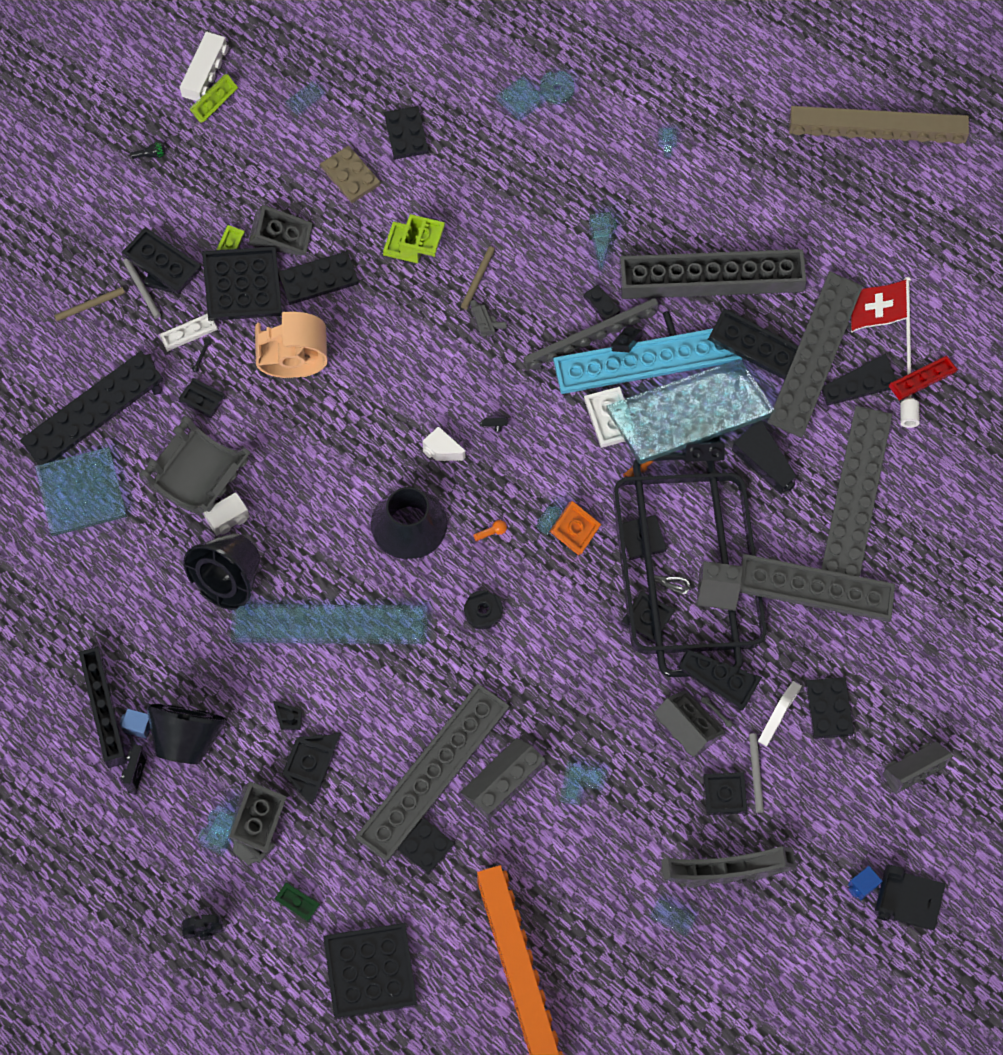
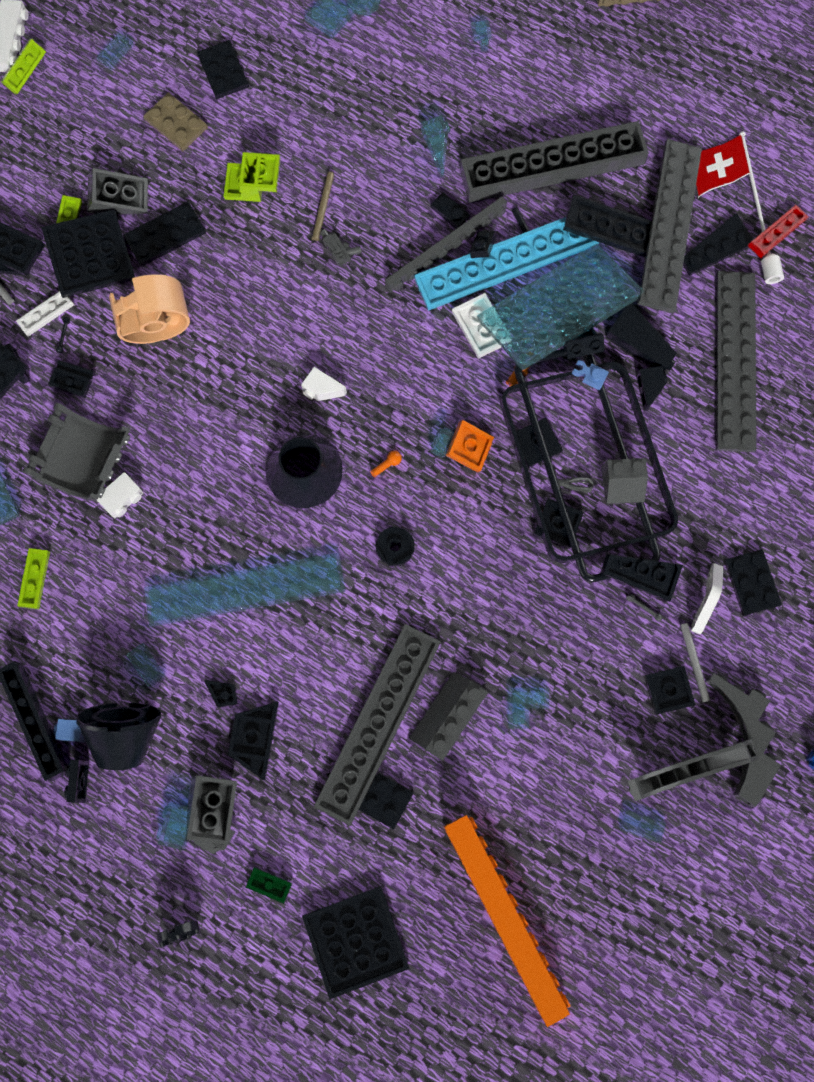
camera: 10 degrees left, 10 degrees up
(128, 577) = (33, 578): none -> lime plate
(219, 677) = (145, 665): none -> clear light blue tile
(223, 569) = (128, 555): black cone -> none
(496, 421) = (369, 350): black piece -> none
(689, 722) = (620, 625): dark grey slope -> none
(708, 482) = (593, 375): none -> medium blue plate
(766, 502) = (650, 384): none -> black slope
(798, 825) = (748, 710): none -> dark grey arch
(817, 588) = (719, 463): dark grey plate -> none

